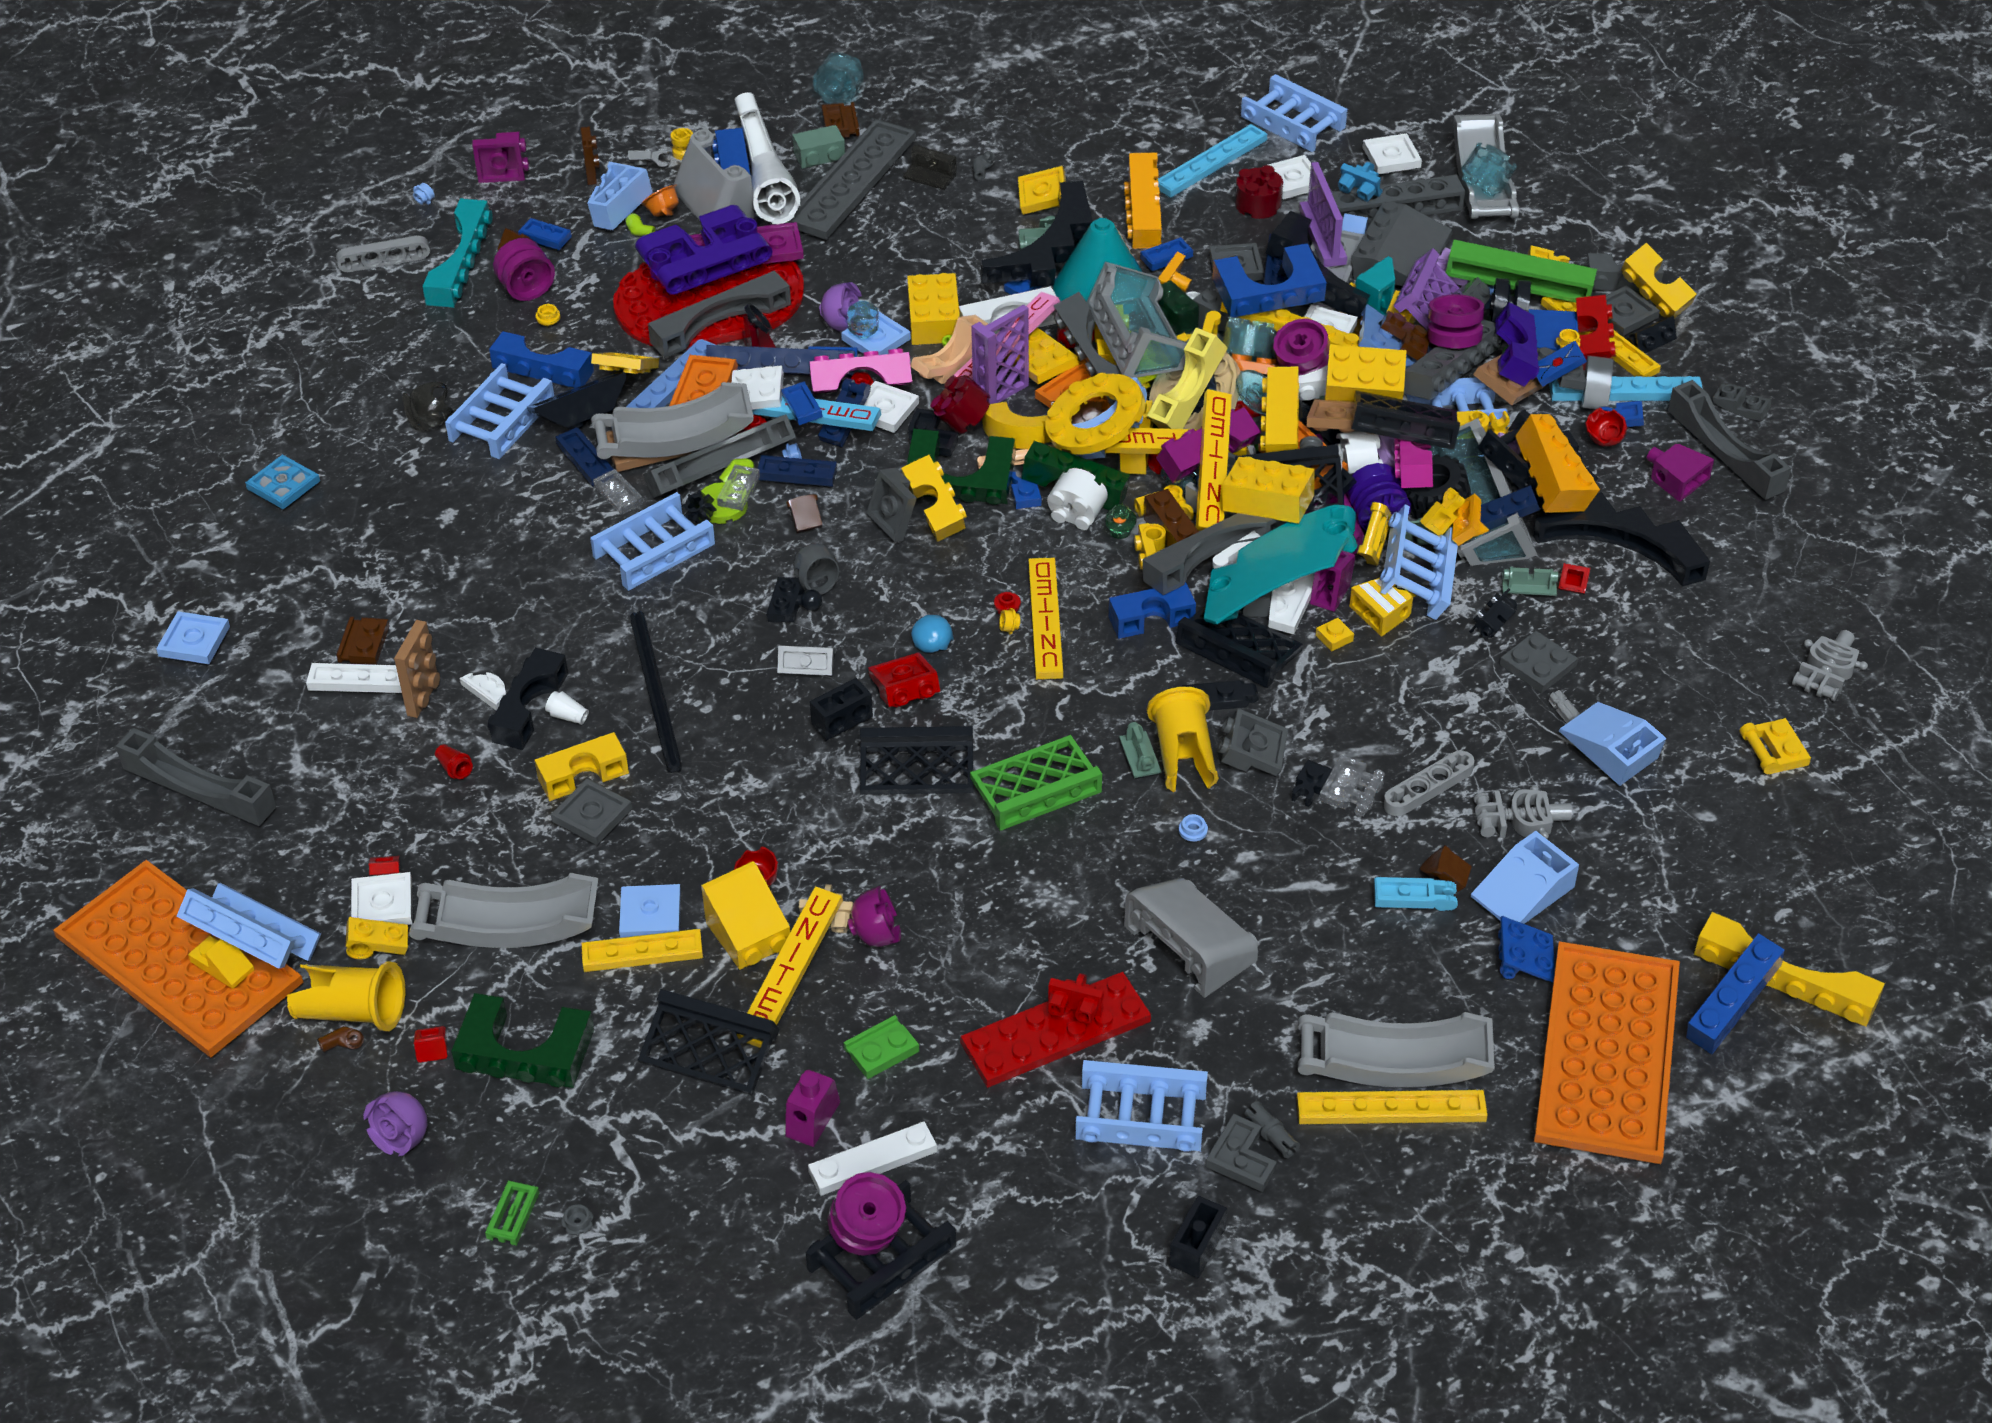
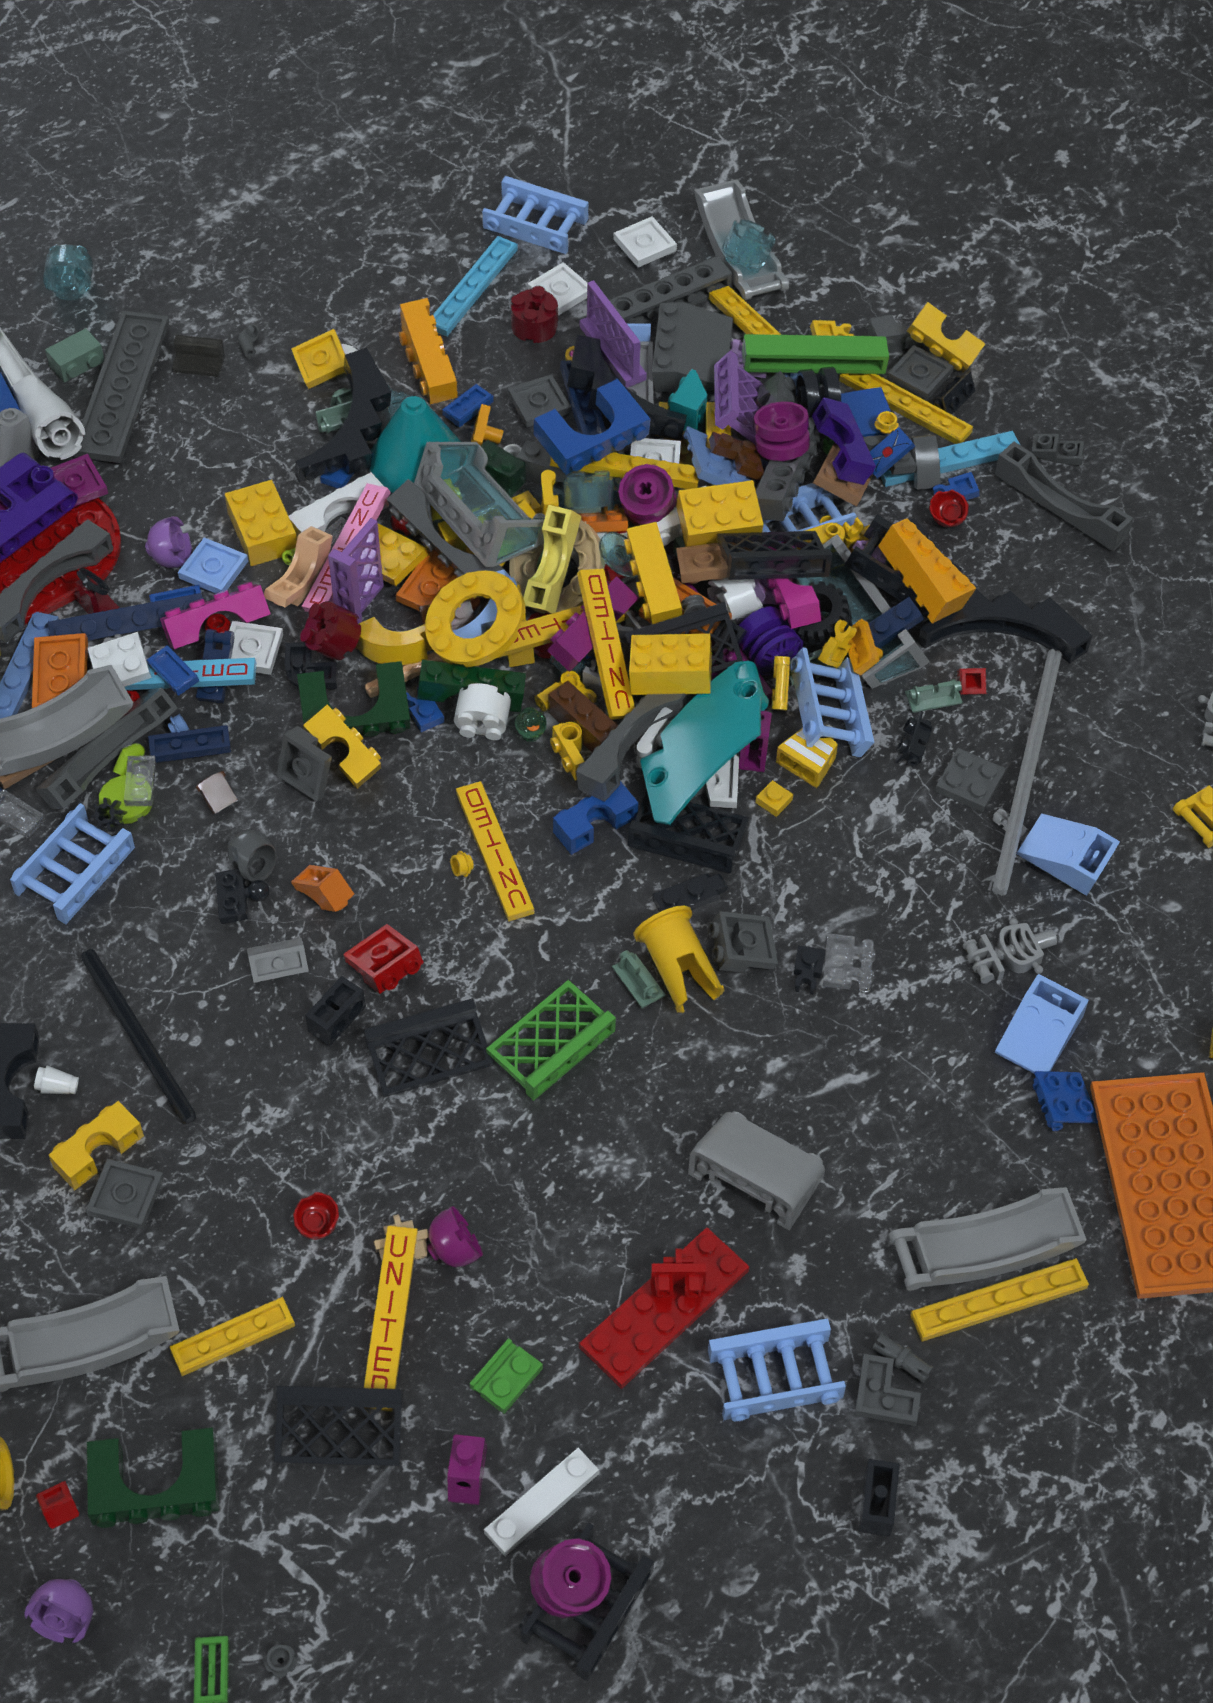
camera: 20 degrees left, 10 degrees up
(649, 910) = (224, 1289): light blue plate -> none
(744, 915) = (327, 1274): yellow slope -> none
(843, 117) = (85, 314): reddish brown plate -> none
(863, 319) = (198, 555): clear light blue head -> none
(873, 610) = (324, 886): none -> orange arch
(932, 633) = (391, 898): dark azure hair -> none
(1007, 600) = (452, 849): red plate -> none
(1193, 828) = (720, 1043): light blue plate -> none
(1362, 178) = (634, 282): dark azure hips -> none
(1415, 893) = (943, 1065): medium azure hinge -> none
(1431, 785) = (913, 938): light grey beam -> none
(1447, 867) = (965, 1029): reddish brown tile -> none
(1461, 224) = (742, 313): none -> yellow tile
(1593, 317) = (899, 389): red arch -> none
(1596, 665) = (1026, 773): none -> light grey axle
(1679, 470) = (1028, 538): magenta torso -> none

